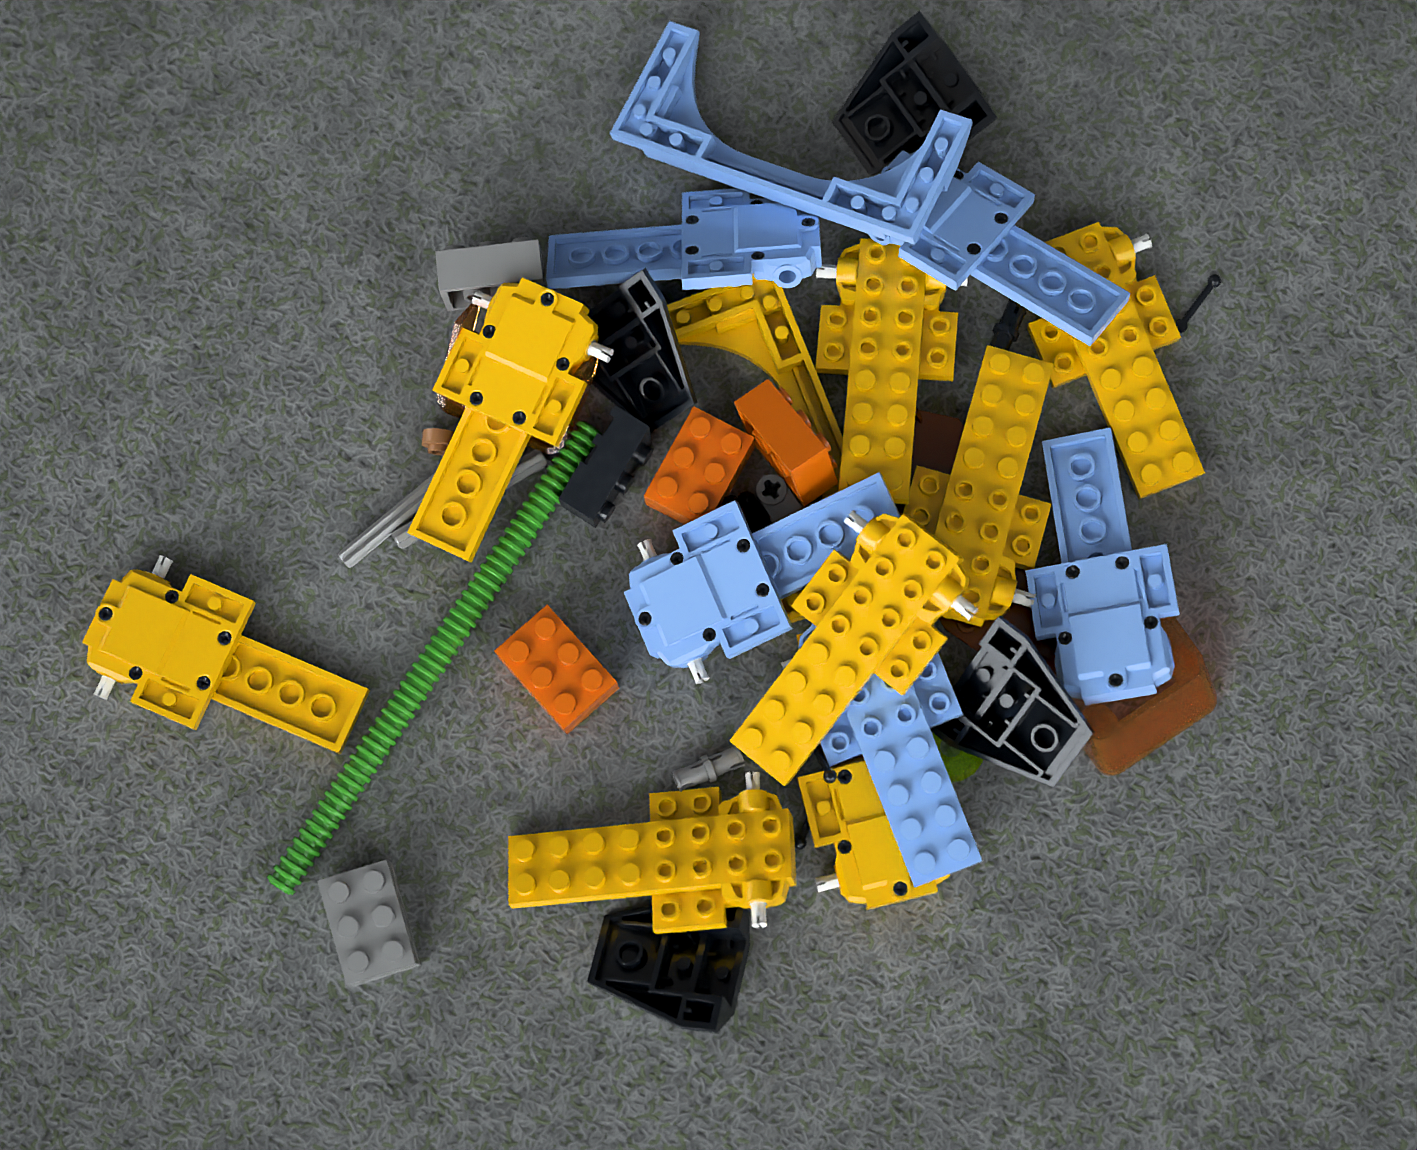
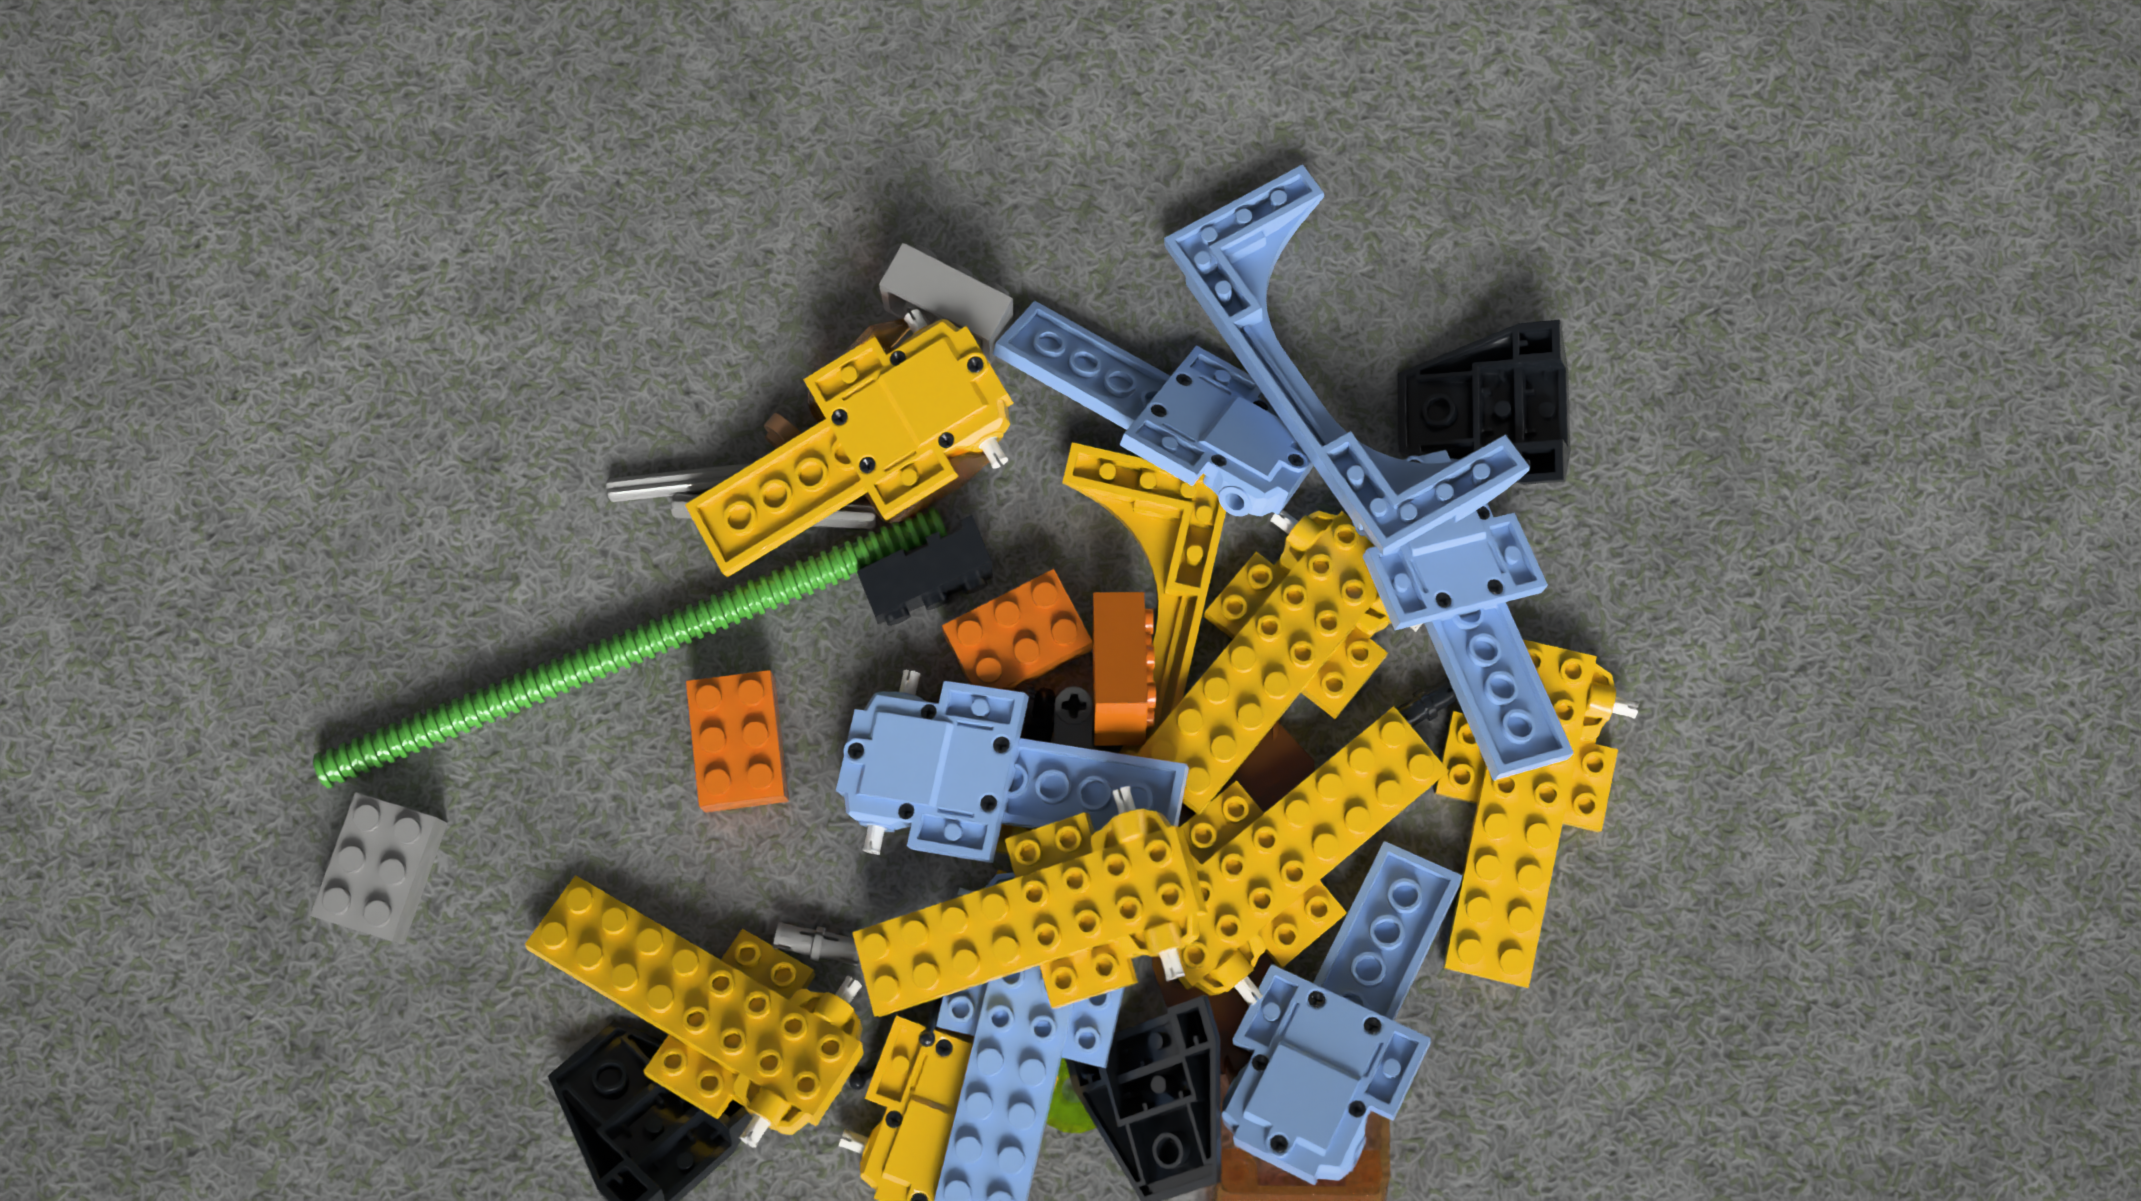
camera: 25 degrees right, 0 degrees up
(191, 650) = (399, 480): yellow piece -> none
(647, 363) = (1036, 492): black wedge -> none
(1213, 281) = (1612, 818): black hinge -> none

